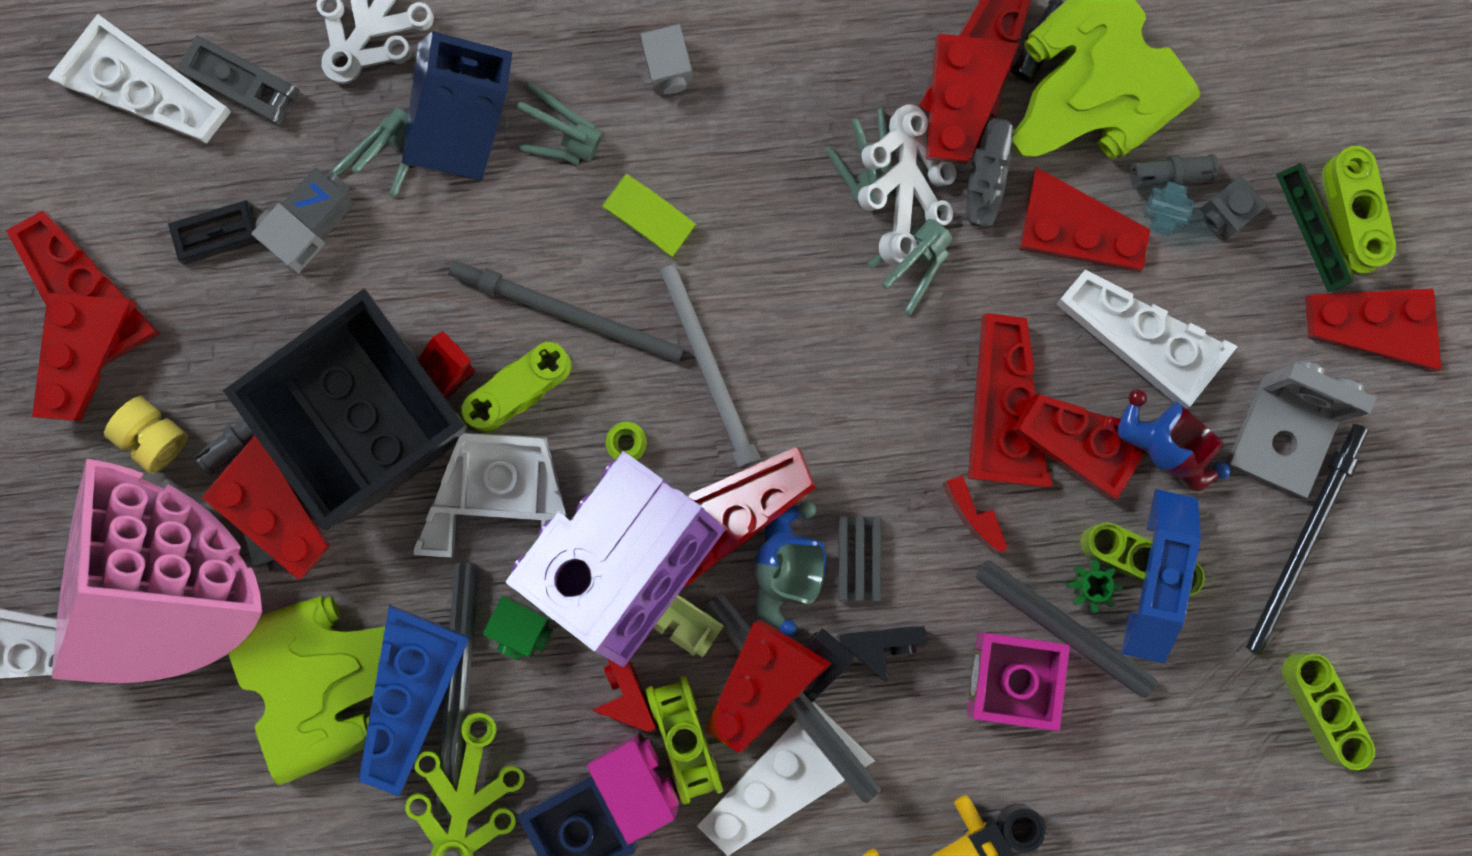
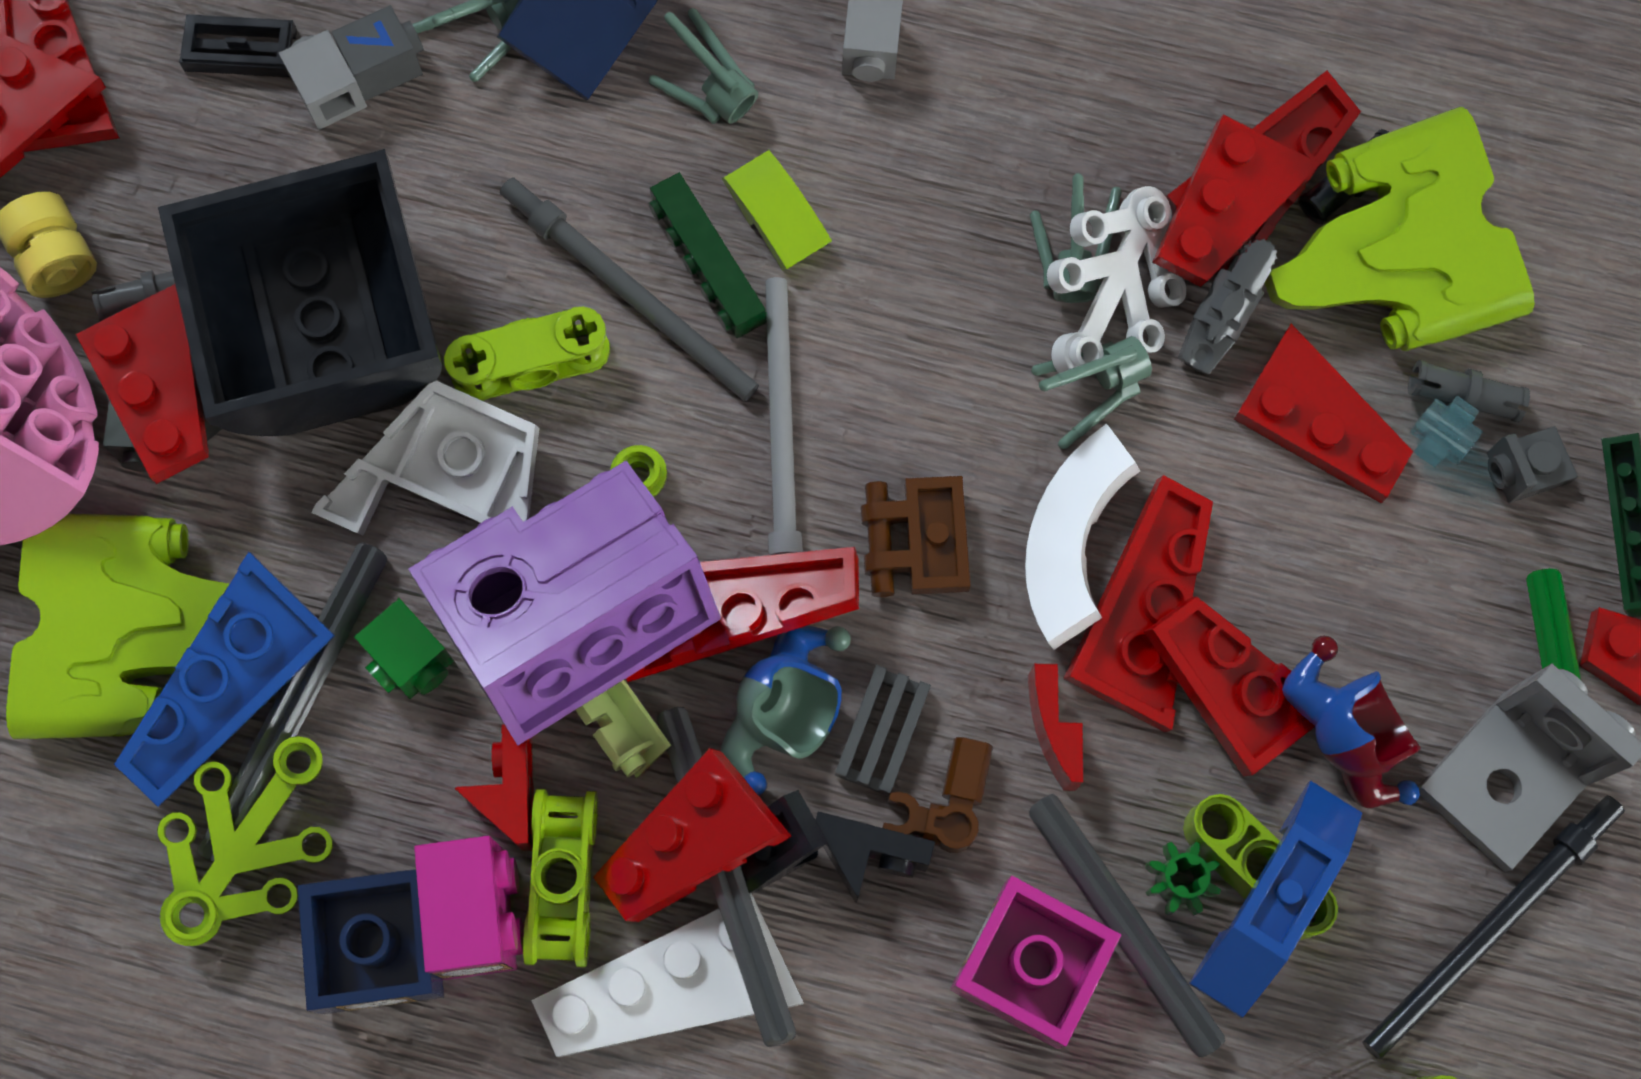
camera: 15 degrees right, 10 degrees down
(446, 364) = (451, 292): red slope -> none
(612, 267) = (707, 256): none -> dark green piece
(845, 410) = (935, 536): none -> reddish brown plate
(927, 575) = (953, 825): none -> reddish brown bar
(930, 378) = (1060, 532): none -> white tile
(1160, 348) = (1370, 597): white wing -> none
(1285, 322) = (1552, 620): none -> green axle

